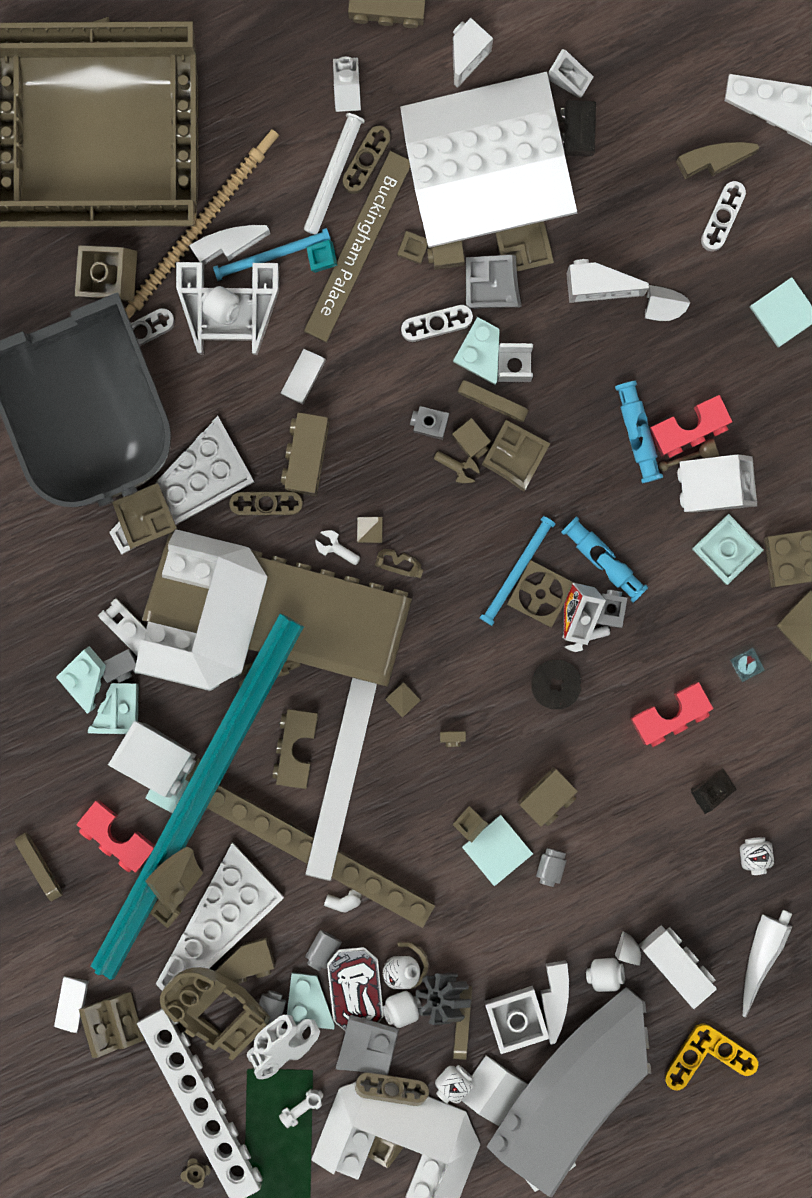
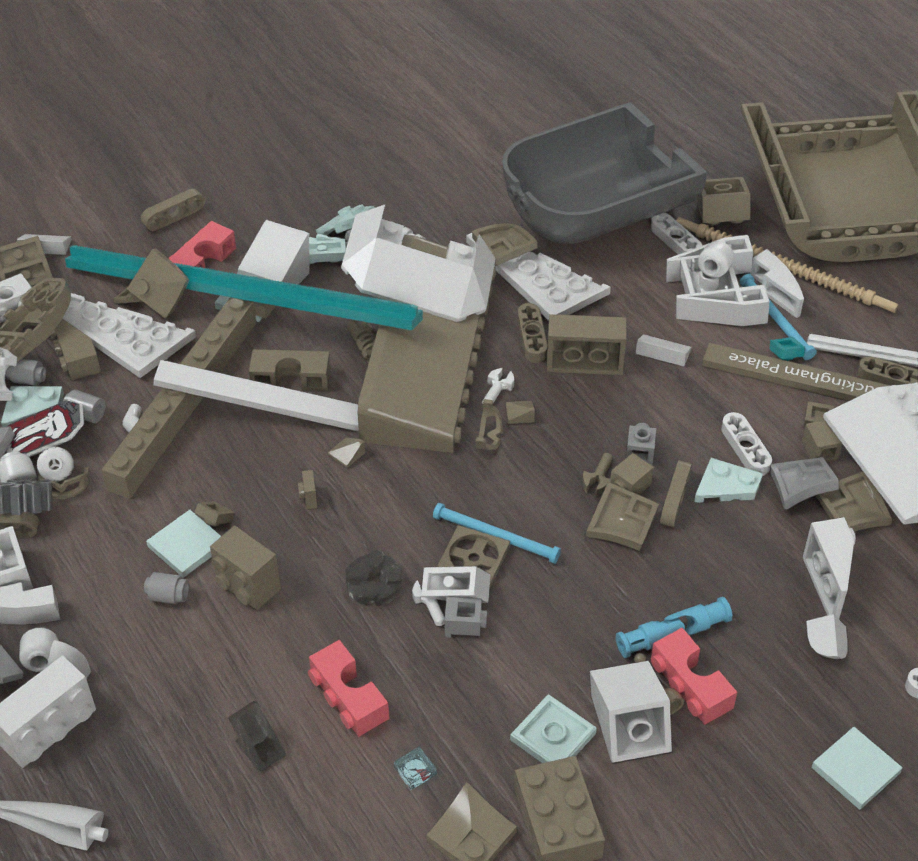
camera: 80 degrees right, 40 degrees down
(514, 350) = (733, 507): white piece -> none
(617, 572) = (513, 615): medium azure piece -> none
(757, 855) = (177, 795): white head -> none

